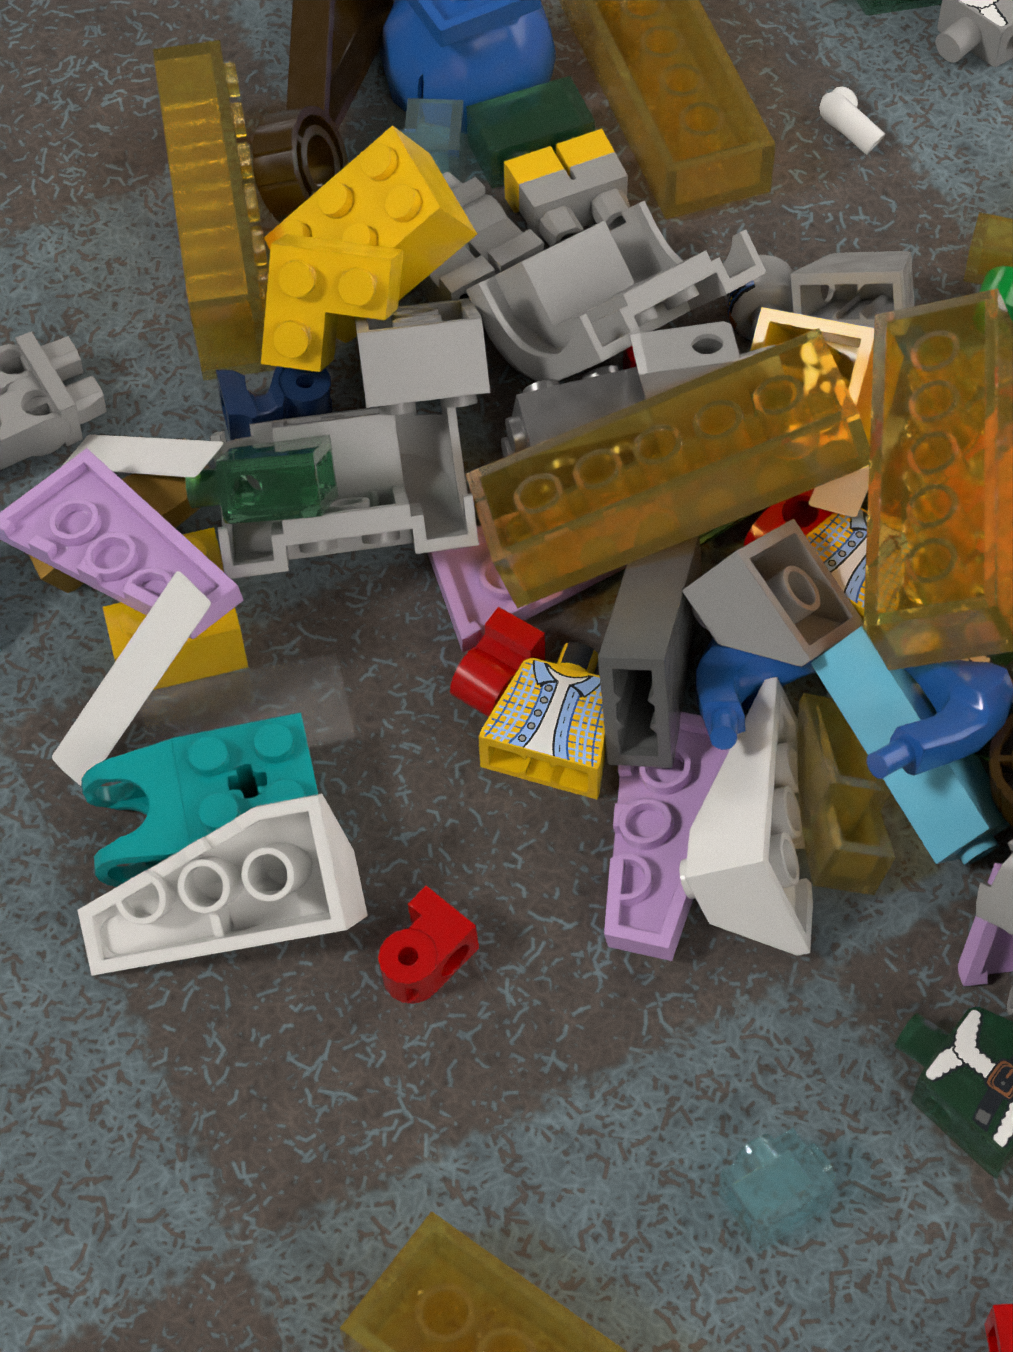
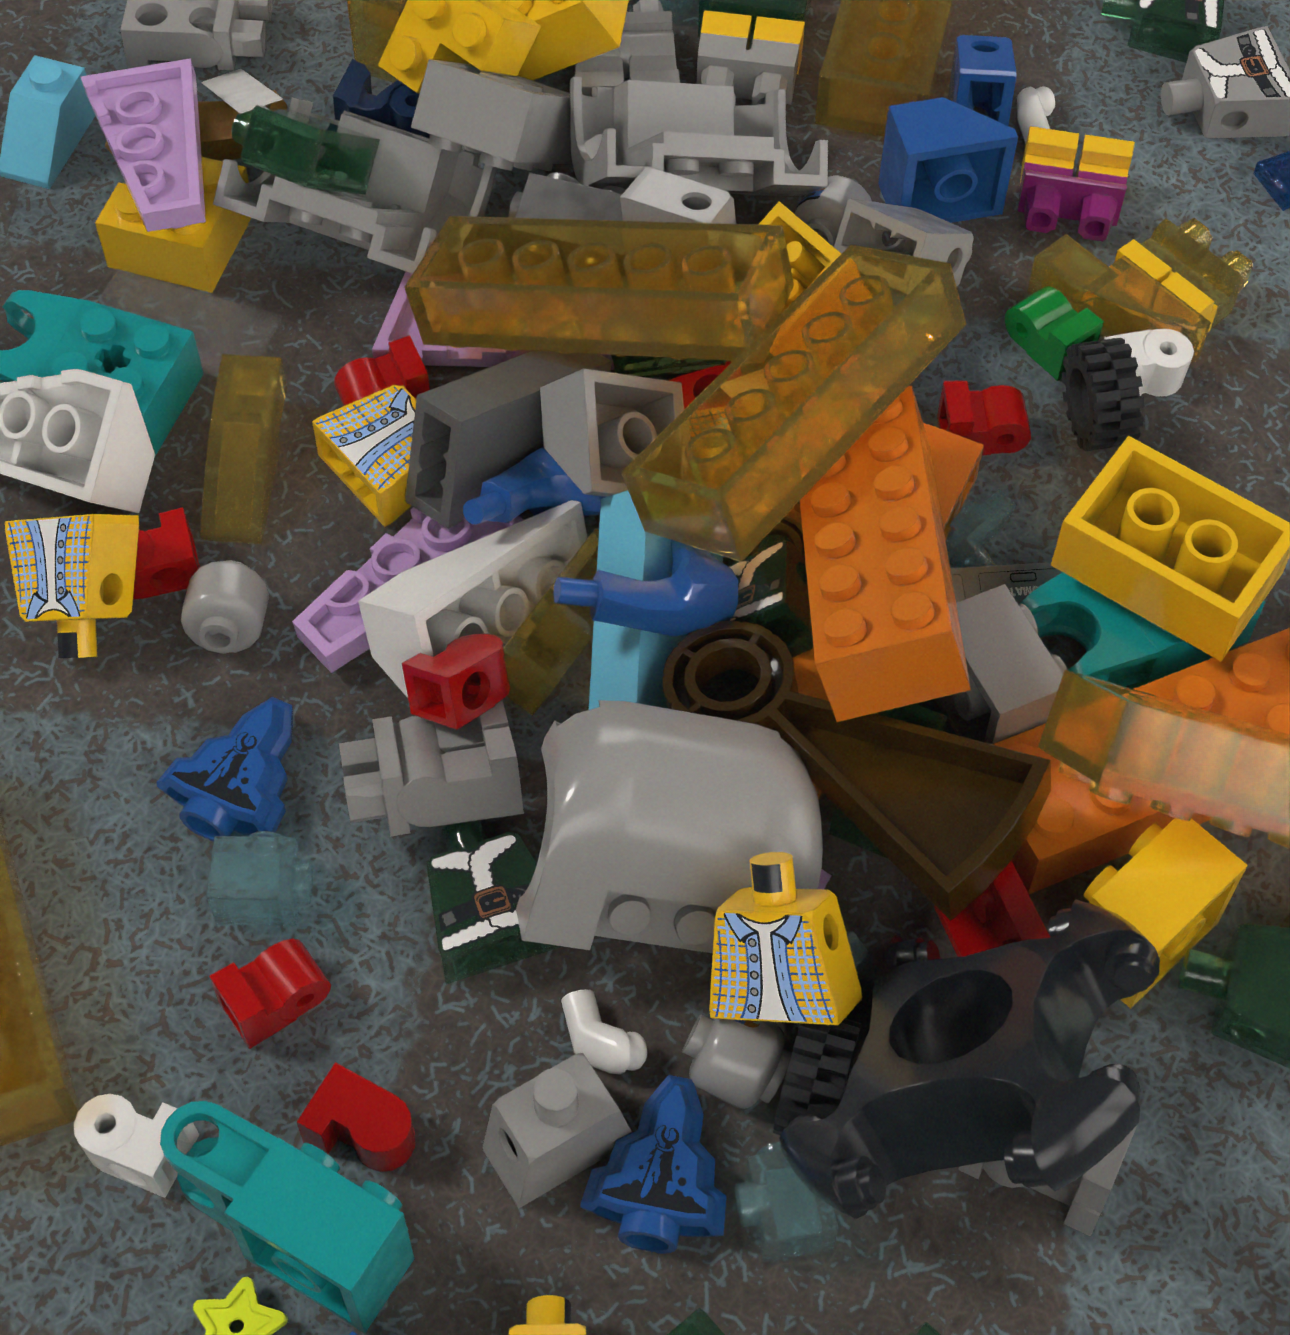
camera: 30 degrees right, 0 degrees up
(132, 677) = (96, 236): white sticker -> none
(382, 1006) = (74, 573): none -> torso
(421, 798) = (242, 448): none -> clear yellow slope
(532, 954) = (223, 603): none -> light grey head
(672, 1107) = (235, 777): none -> blue rock
(806, 119) = (984, 75): none -> blue torso
(827, 198) = (946, 160): none -> blue slope
(827, 901) = (458, 681): none -> red leg
(857, 990) = (433, 772): none -> light grey hips
(868, 1281) = (270, 990): none -> red leg
(932, 159) = (1090, 197): none -> magenta hips

